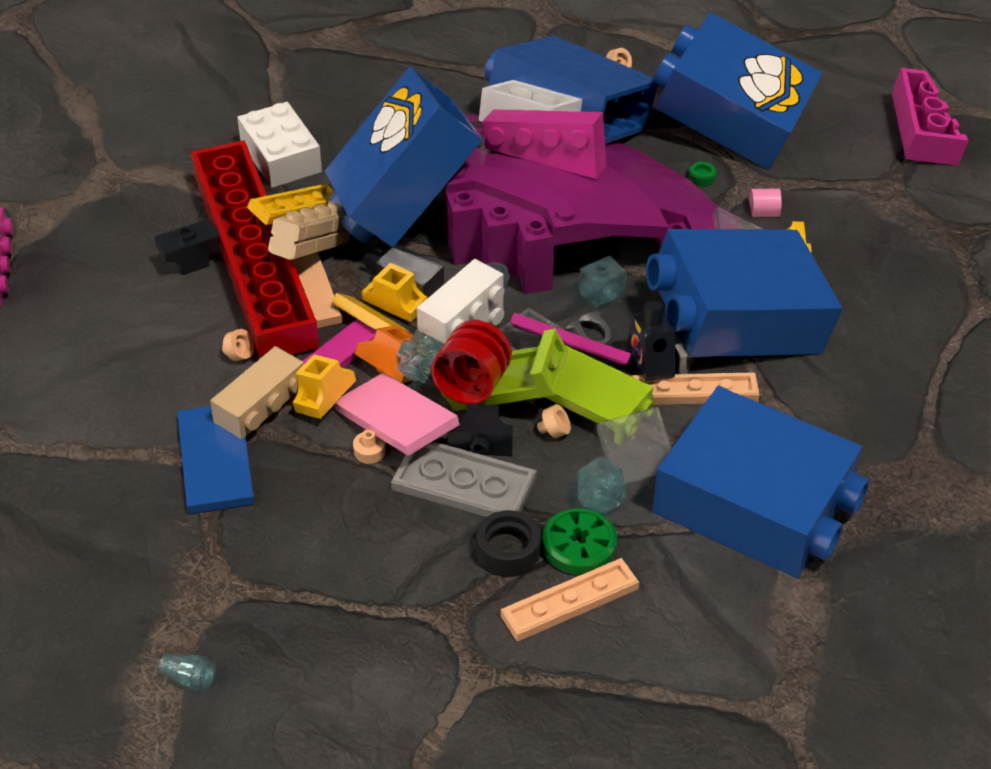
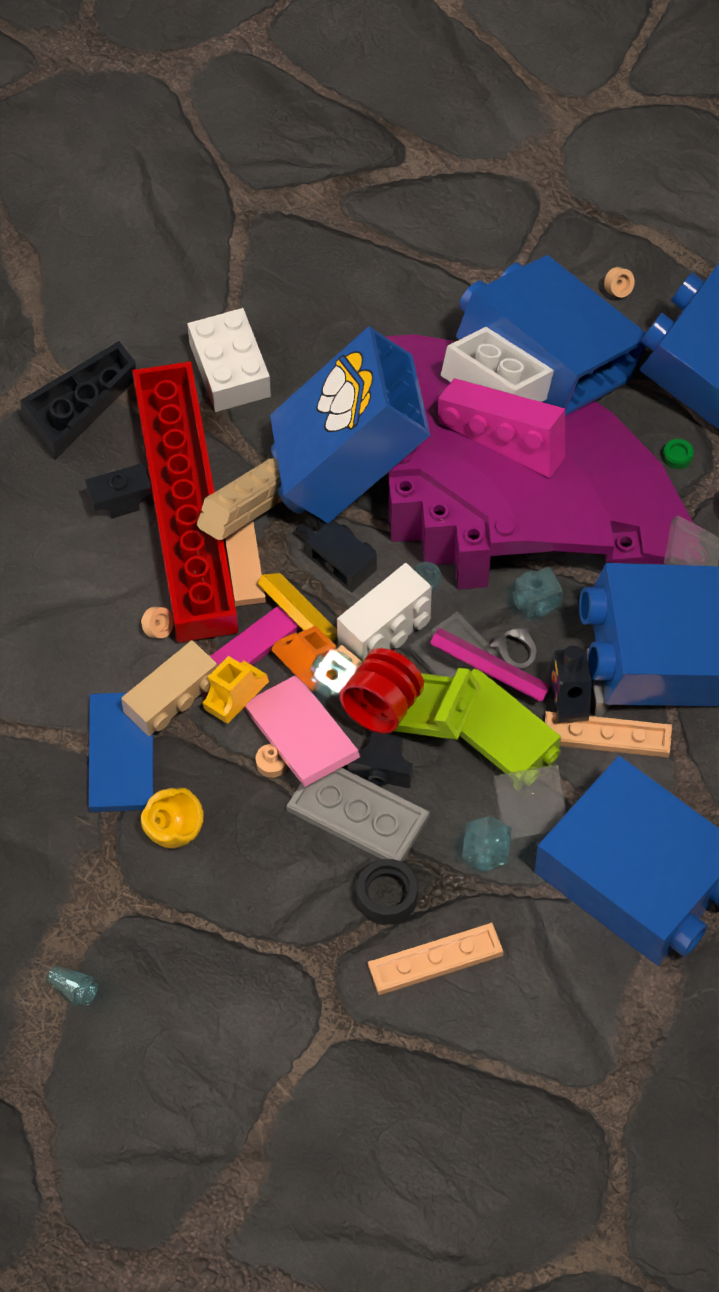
camera: 10 degrees right, 15 degrees up
(140, 183) = (77, 398): none -> black wedge
(275, 500) = (176, 816): none -> yellow piece
(277, 205) = (230, 454): yellow tile -> none
(395, 292) = (323, 579): yellow brick -> none
(554, 422) = (457, 758): light nougat tile -> none
(572, 556) = (466, 881): green wheel -> none

